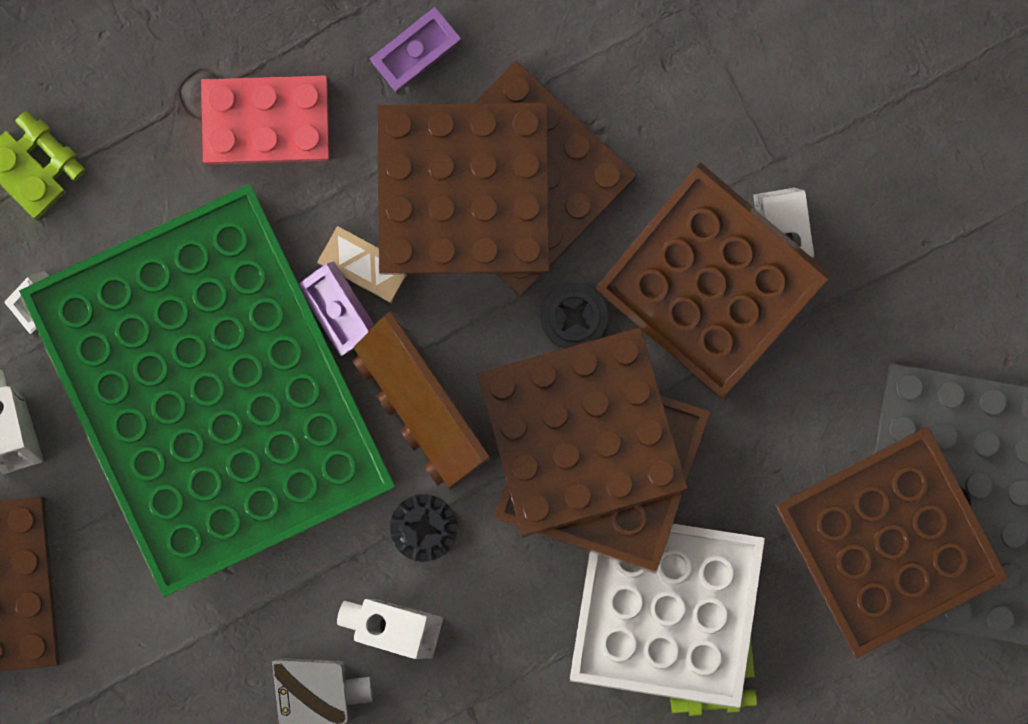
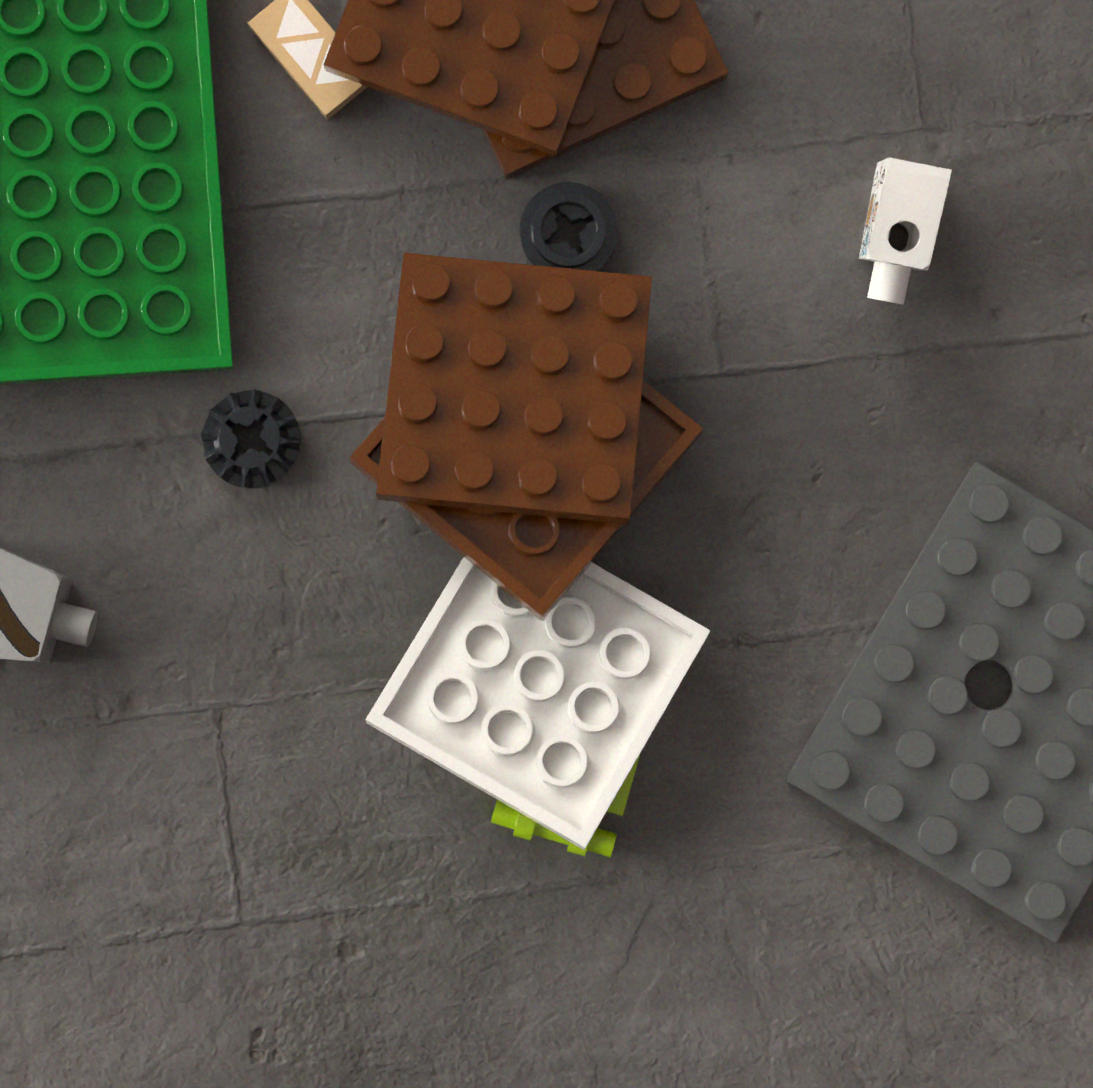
camera: 10 degrees right, 0 degrees up
(336, 307) = (250, 95): plate -> none
(406, 629) = (153, 555): white torso -> none
(420, 402) = (311, 260): reddish brown slope -> none
(712, 280) = (776, 248): reddish brown plate -> none
(891, 542) = (882, 703): reddish brown plate -> none

